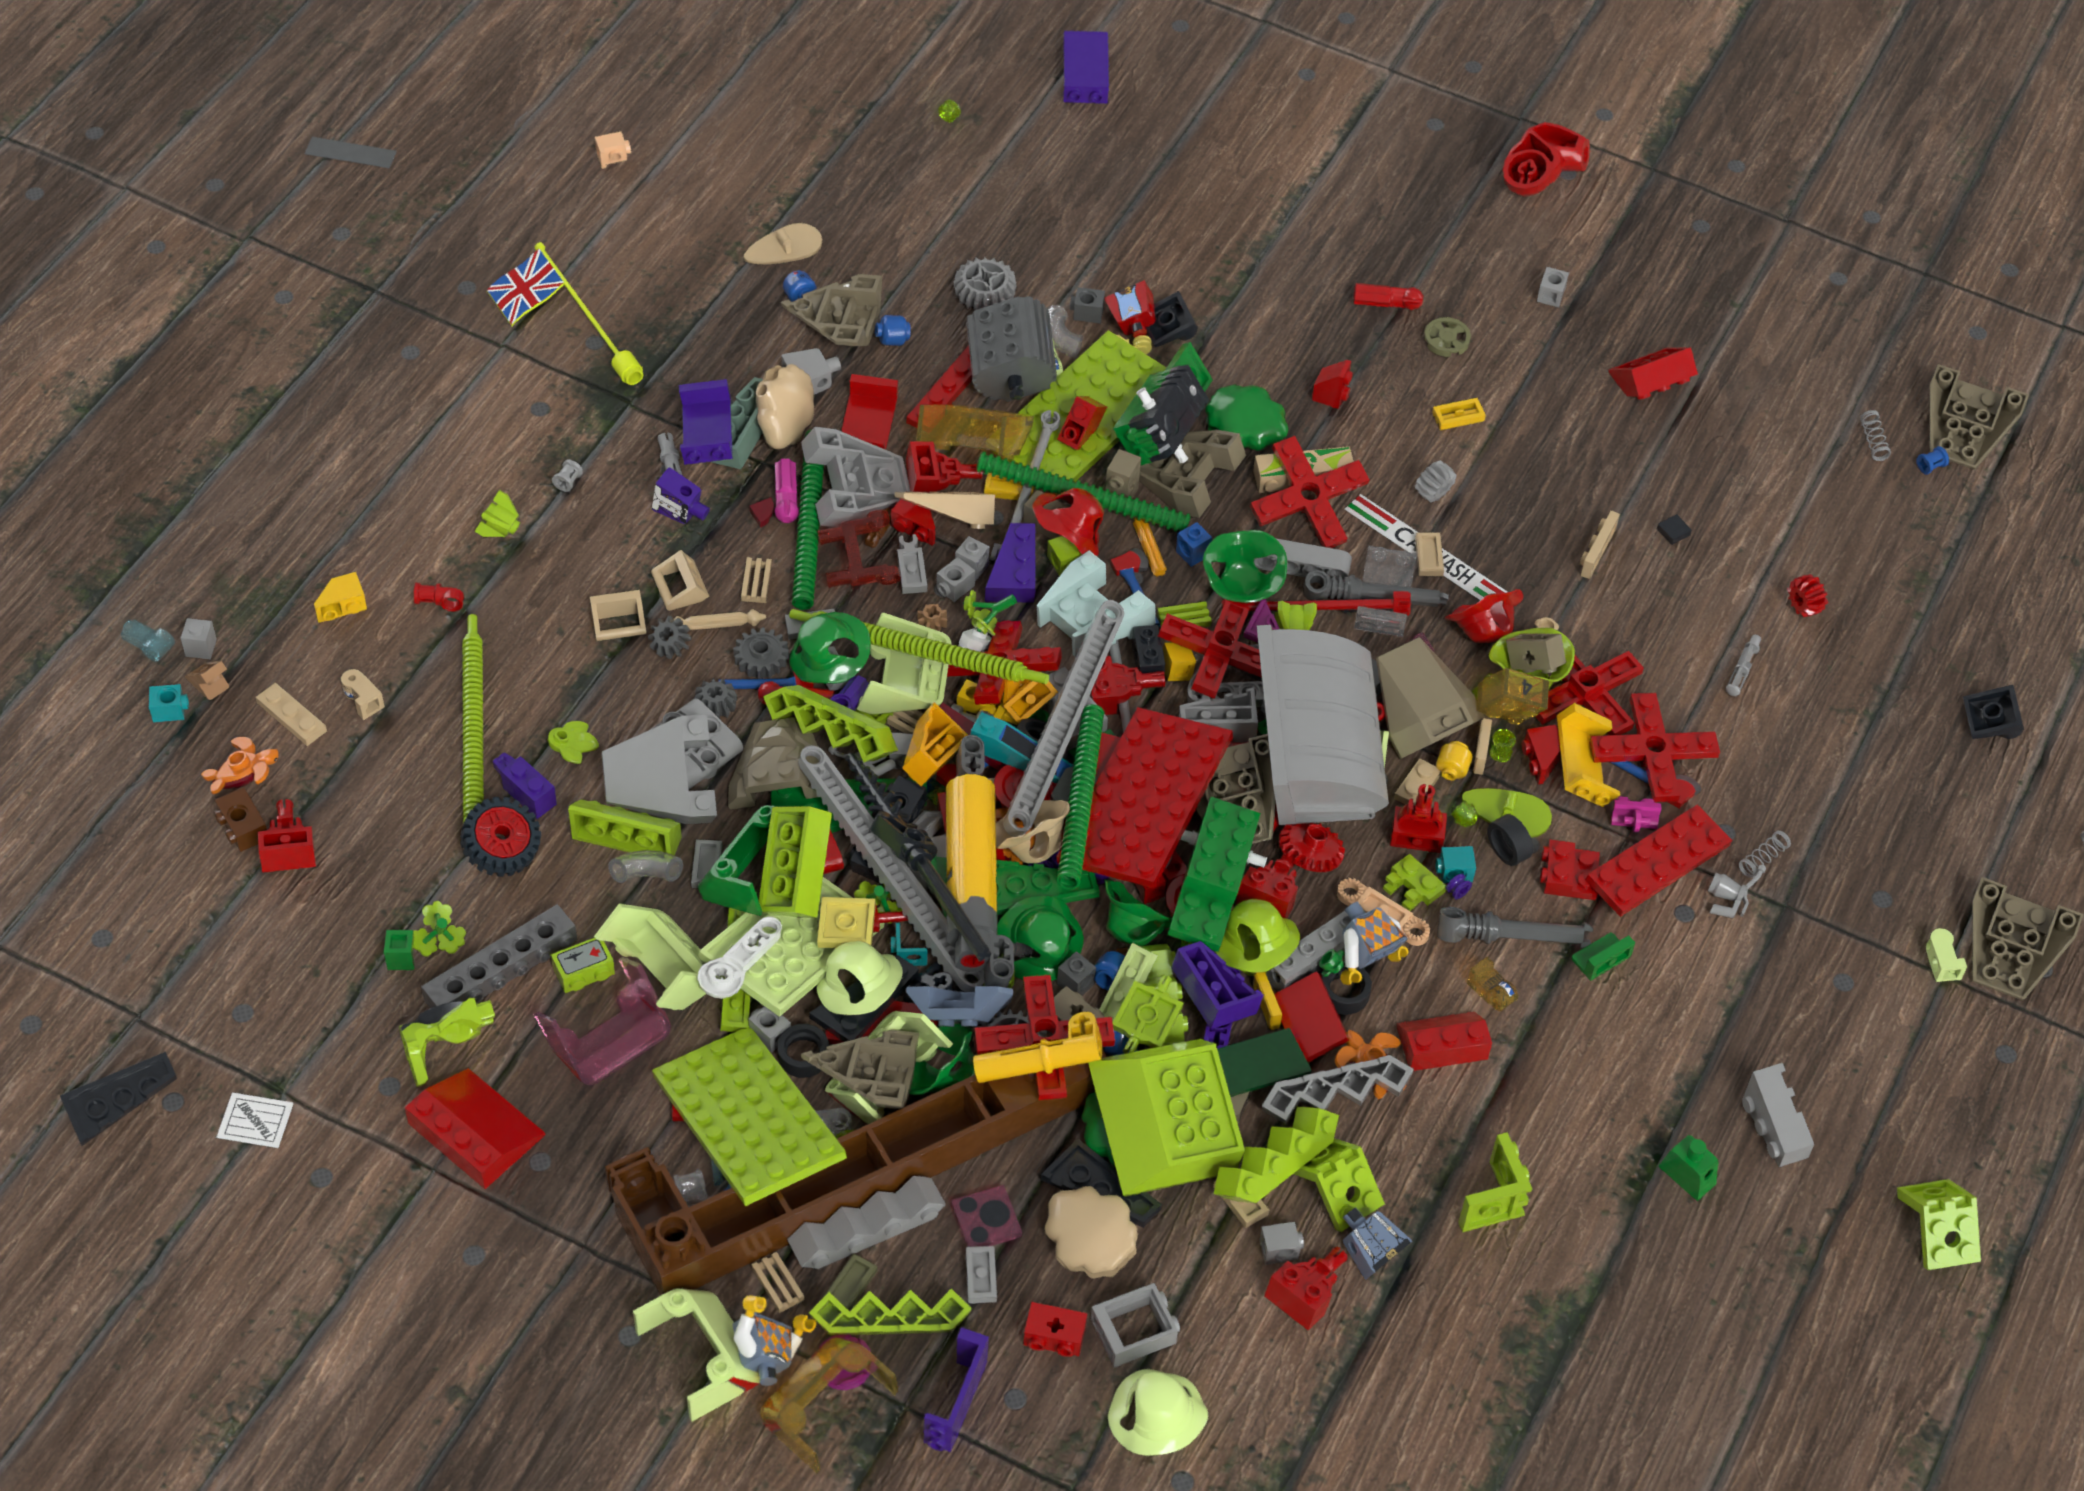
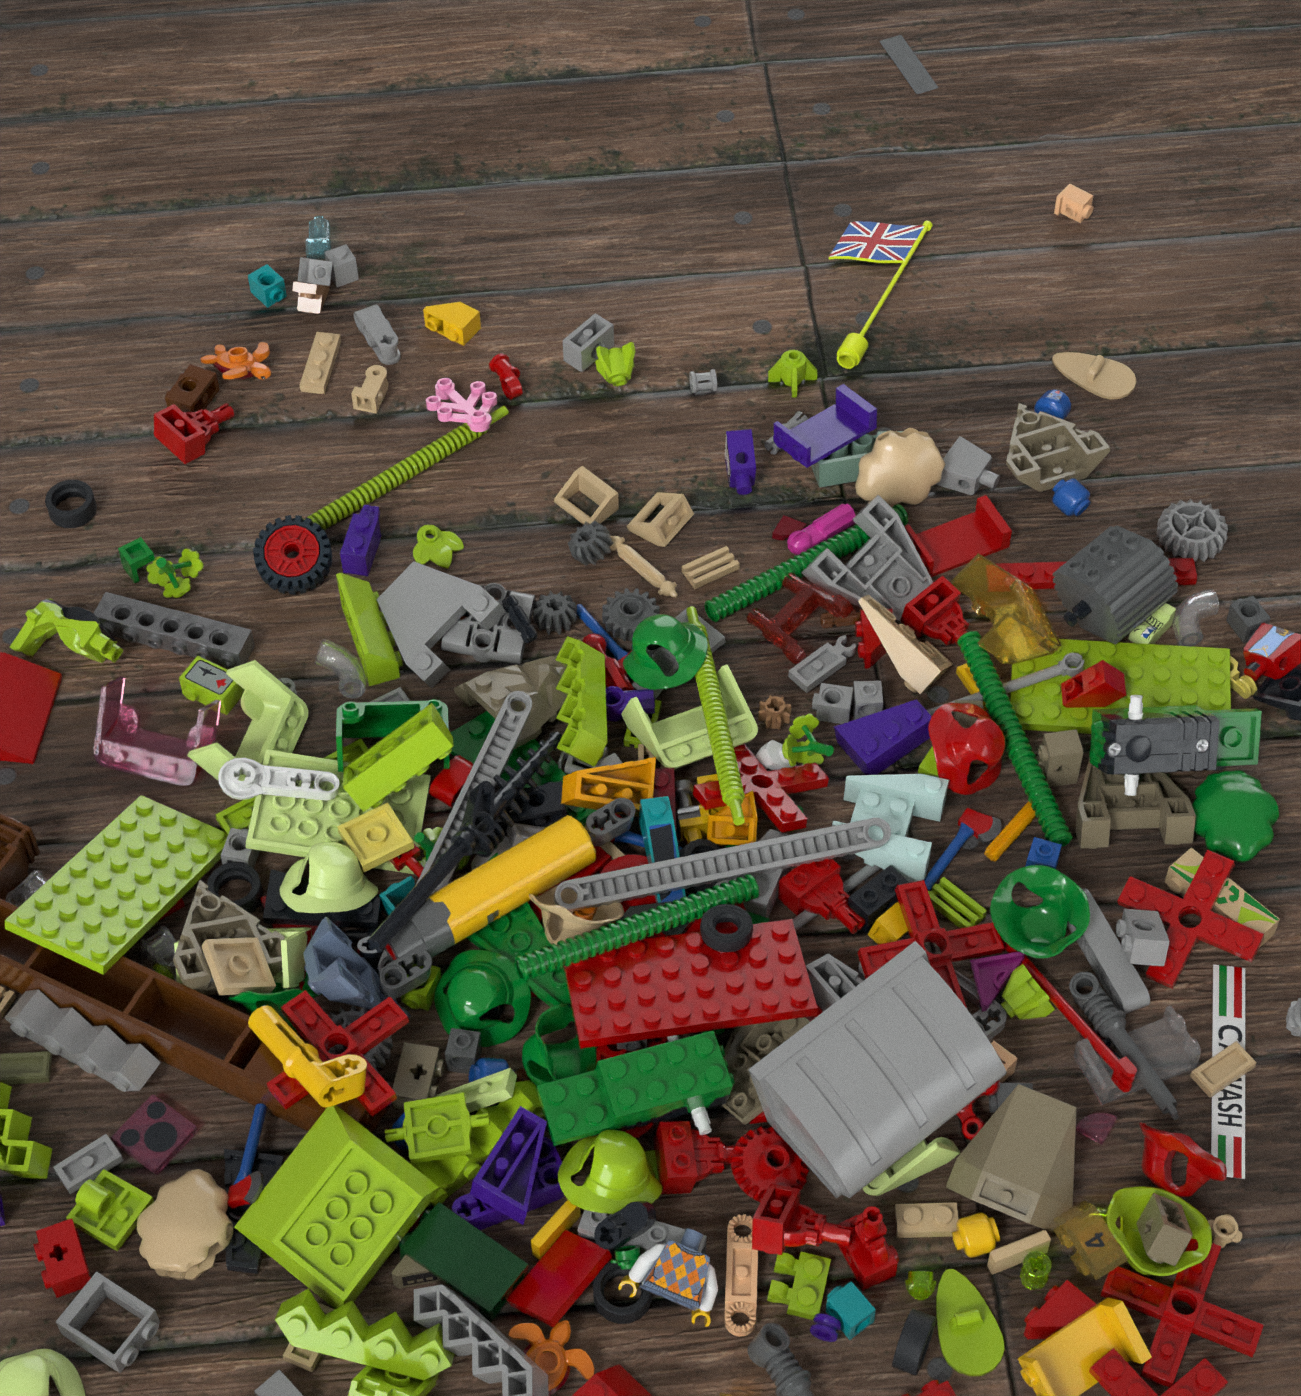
camera: 60 degrees right, 0 degrees up
(192, 658) = (315, 271): none -> light grey brick
(287, 986) = (76, 517): none -> black tyre
(302, 655) = (378, 334): none -> light grey piece
(459, 521) = (581, 344): none -> light grey brick
(476, 635) = (477, 420): none -> bright pink plant
(612, 415) = (792, 369): none -> lime brick
(719, 719) = (519, 619): none -> black axle
(907, 1066) = (238, 965): none -> tan plate
(1034, 1278) = (109, 1209): none -> lime plate
(1094, 1175) = (248, 1185): none -> piece
(1126, 756) = (726, 942): none -> black tyre
(1307, 524) = (1143, 937): none -> light grey brick
(1312, 957) = (612, 1232): none -> black piece
(1373, 858) = (786, 1222): none -> red brick

